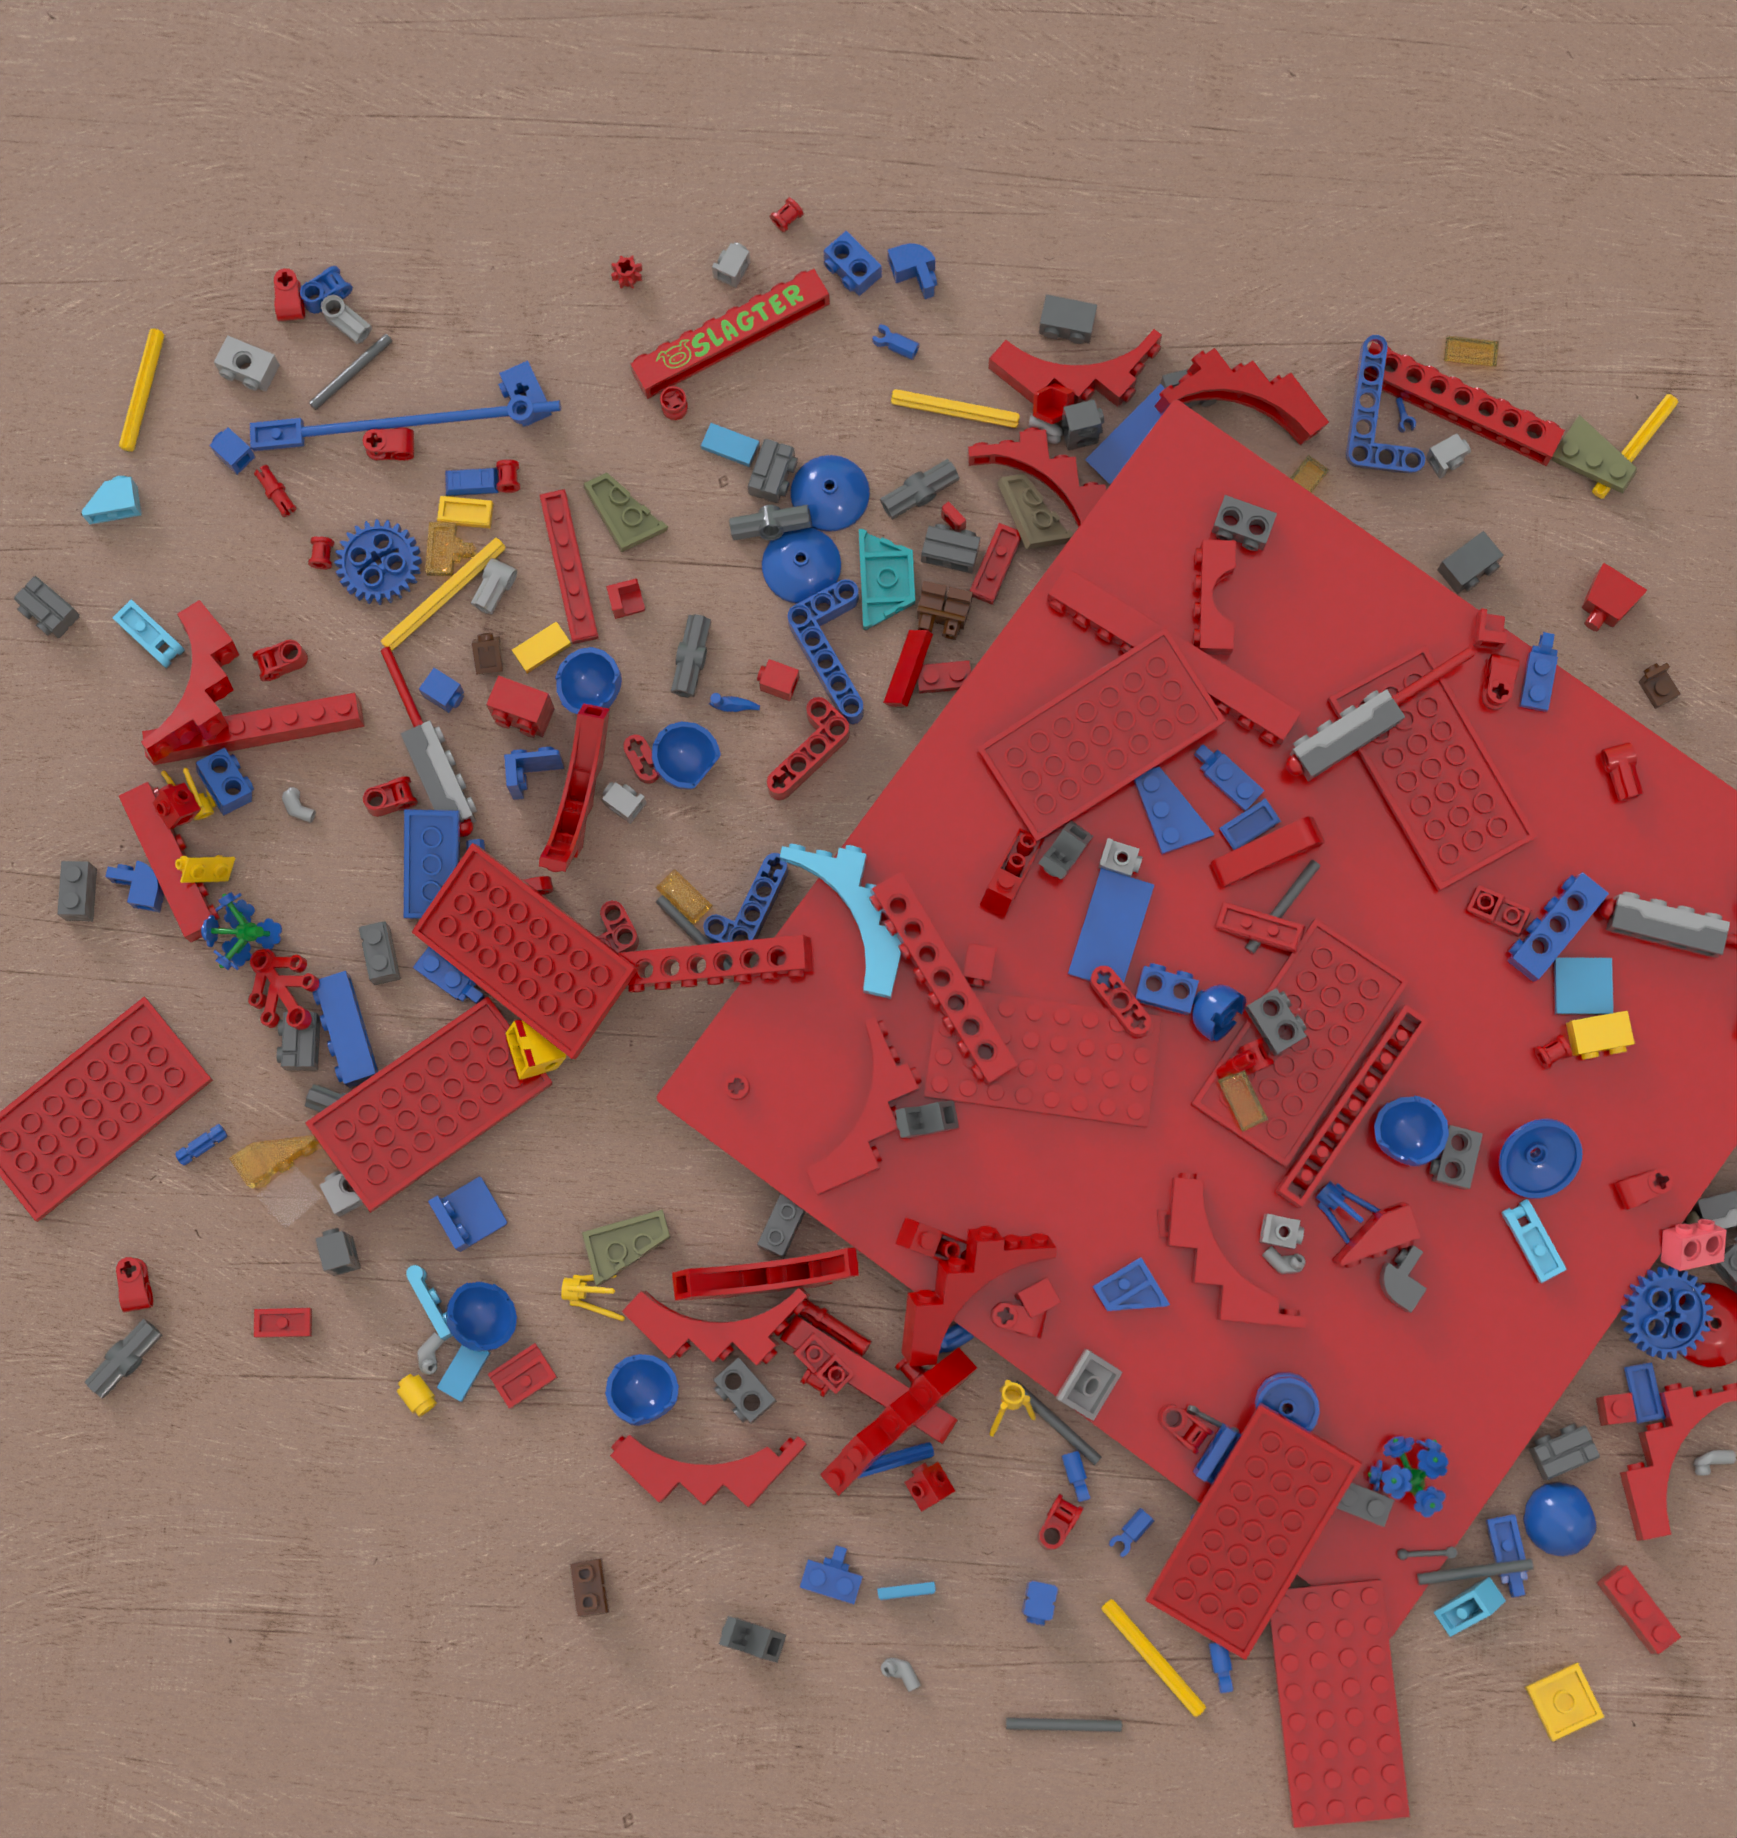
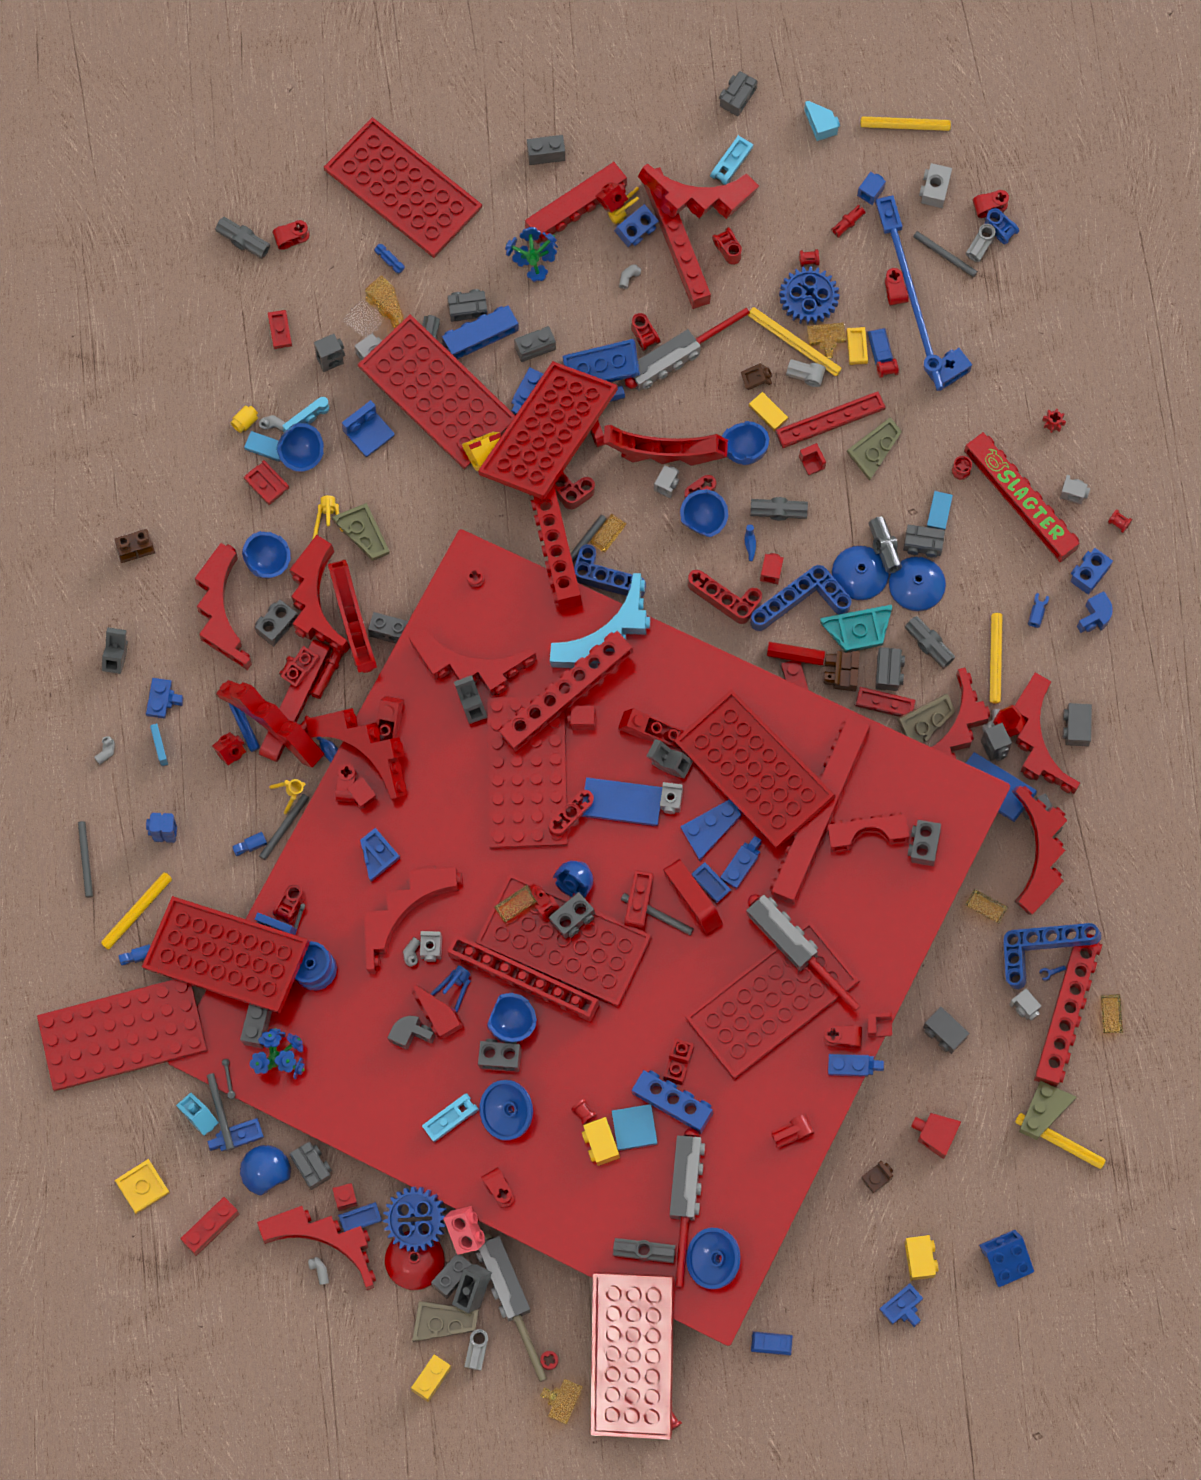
camera: 75 degrees right, 5 degrees down
(144, 890) = (554, 189): blue brick -> none
(205, 868) = (572, 224): yellow hinge -> none
(264, 964) = (516, 273): red plant -> none
(442, 690) = (724, 351): blue brick -> none
(520, 707) = (719, 401): red brick -> none
(522, 762) = (673, 406): blue bracket -> none
(953, 517) = (912, 667): red tile -> none
(1059, 1521) = (217, 837): red piece -> none
(1089, 1384) = (309, 835): light grey slope -> none
(1133, 1530) = (218, 886): blue bar -> none
(1165, 997) = (580, 843): blue brick -> none

